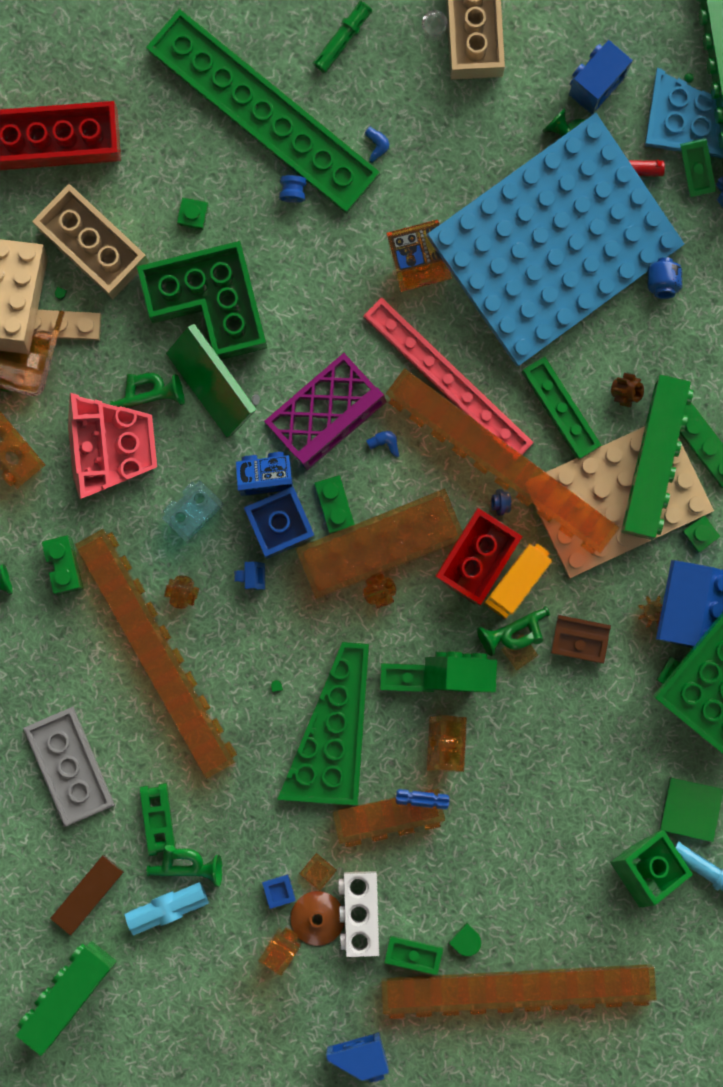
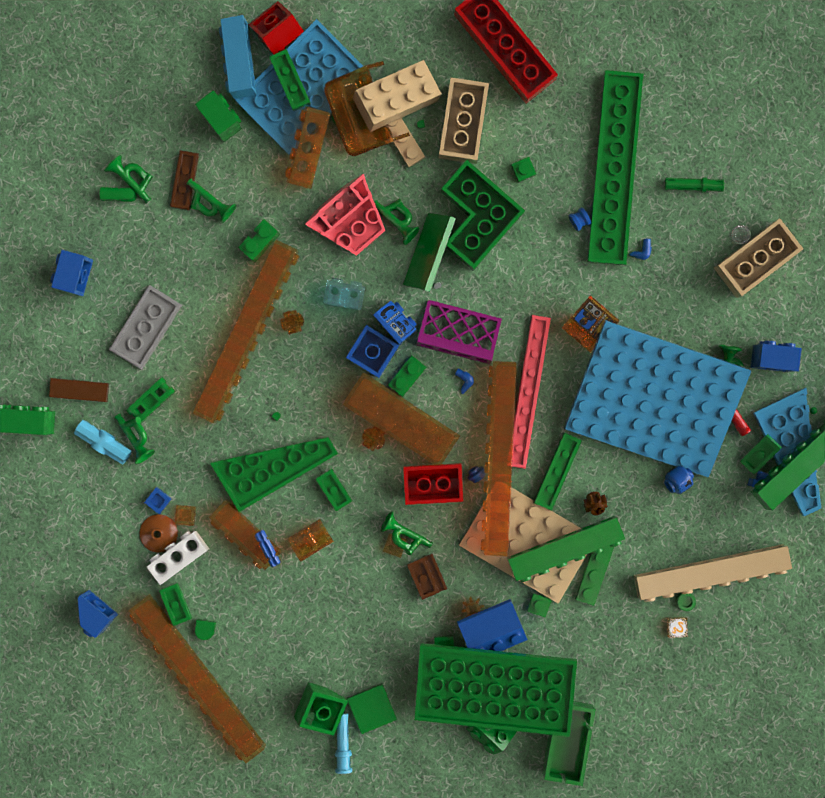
camera: 55 degrees right, 5 degrees up
(252, 575) = (330, 357): blue tile -> none
(280, 950) = (123, 526): clear orange brick -> none
(460, 672) = (356, 520): green brick -> none
(518, 580) = (434, 518): light orange arch -> none

